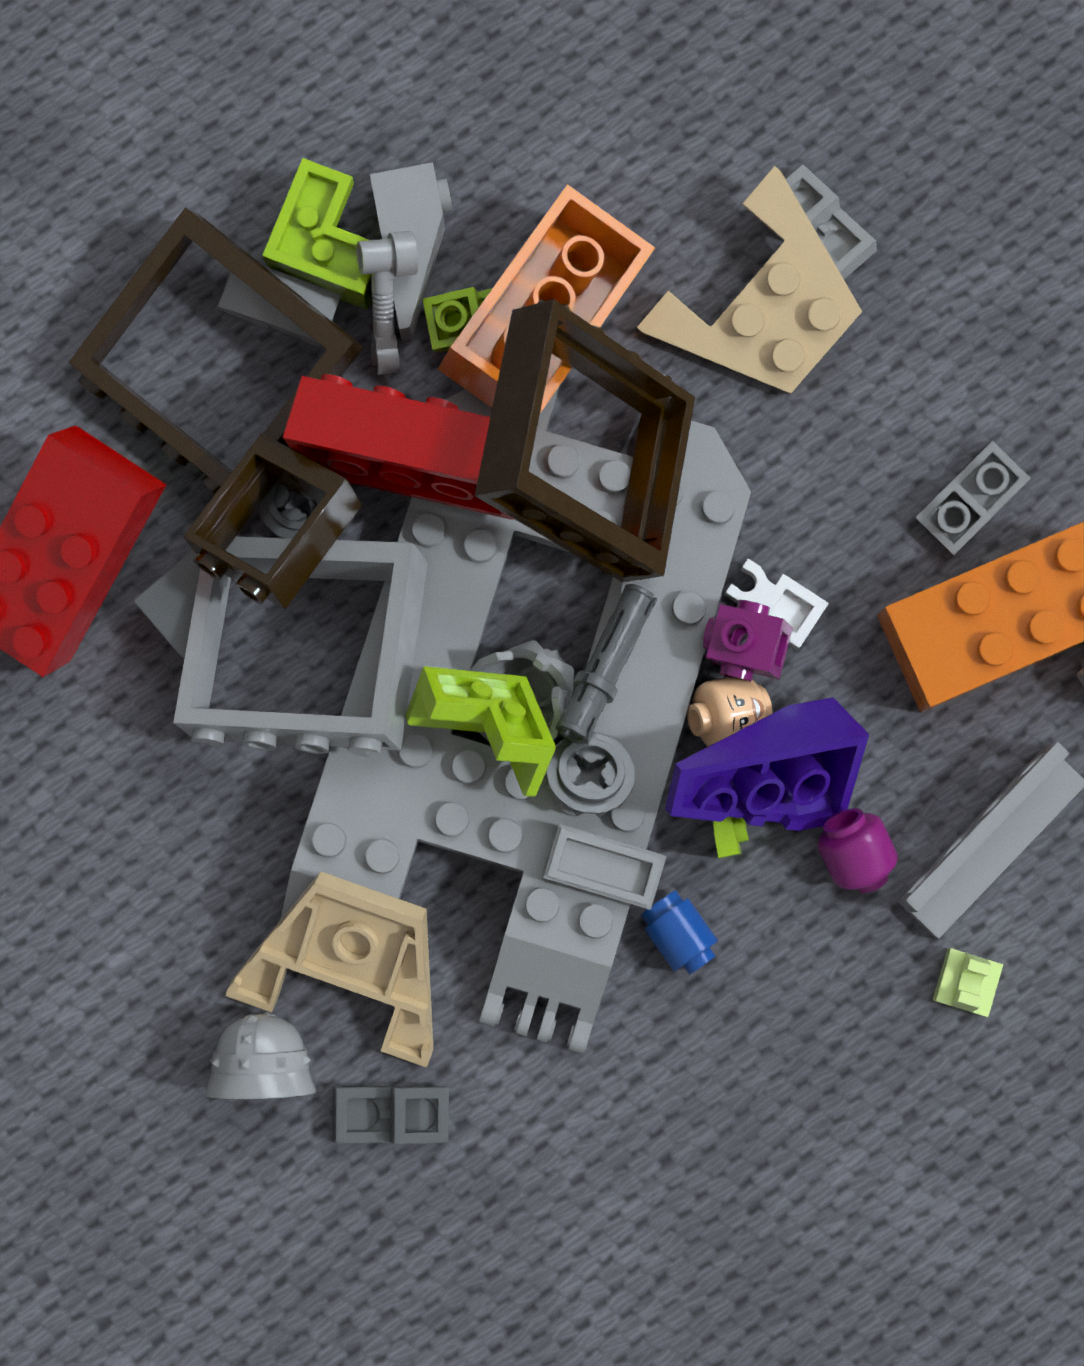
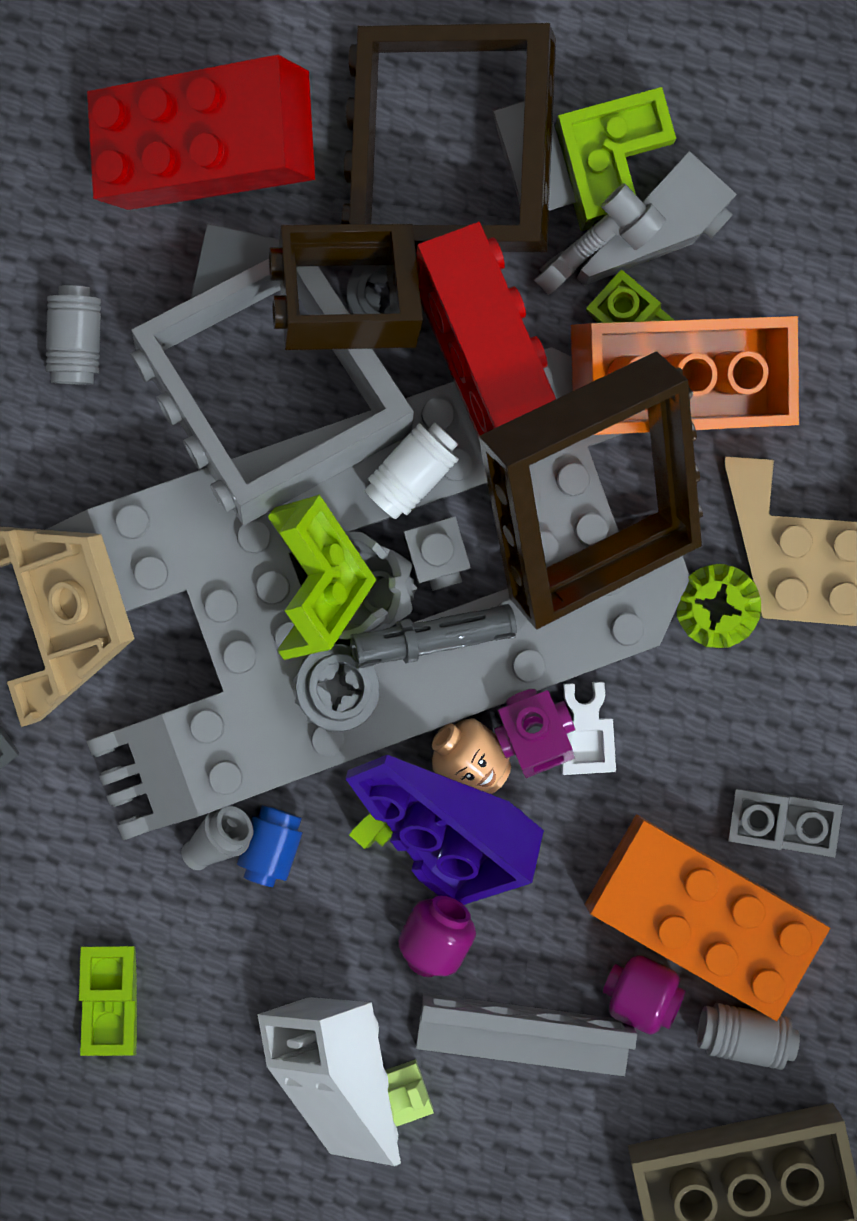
camera: 55 degrees right, 5 degrees up
(139, 781) = (73, 335): none -> light grey head
(458, 580) = (412, 469): none -> white head
(541, 614) = (438, 553): none -> light grey brick
(604, 866) = (272, 752): light grey tile -> none
(641, 969) = (218, 838): none -> light grey cone
(709, 1168) = (108, 1001): none -> lime slope
(757, 395) = (740, 593): none -> lime gear
(911, 1019) = (334, 1074): none -> white slope
(1030, 716) = (644, 994): none -> magenta head

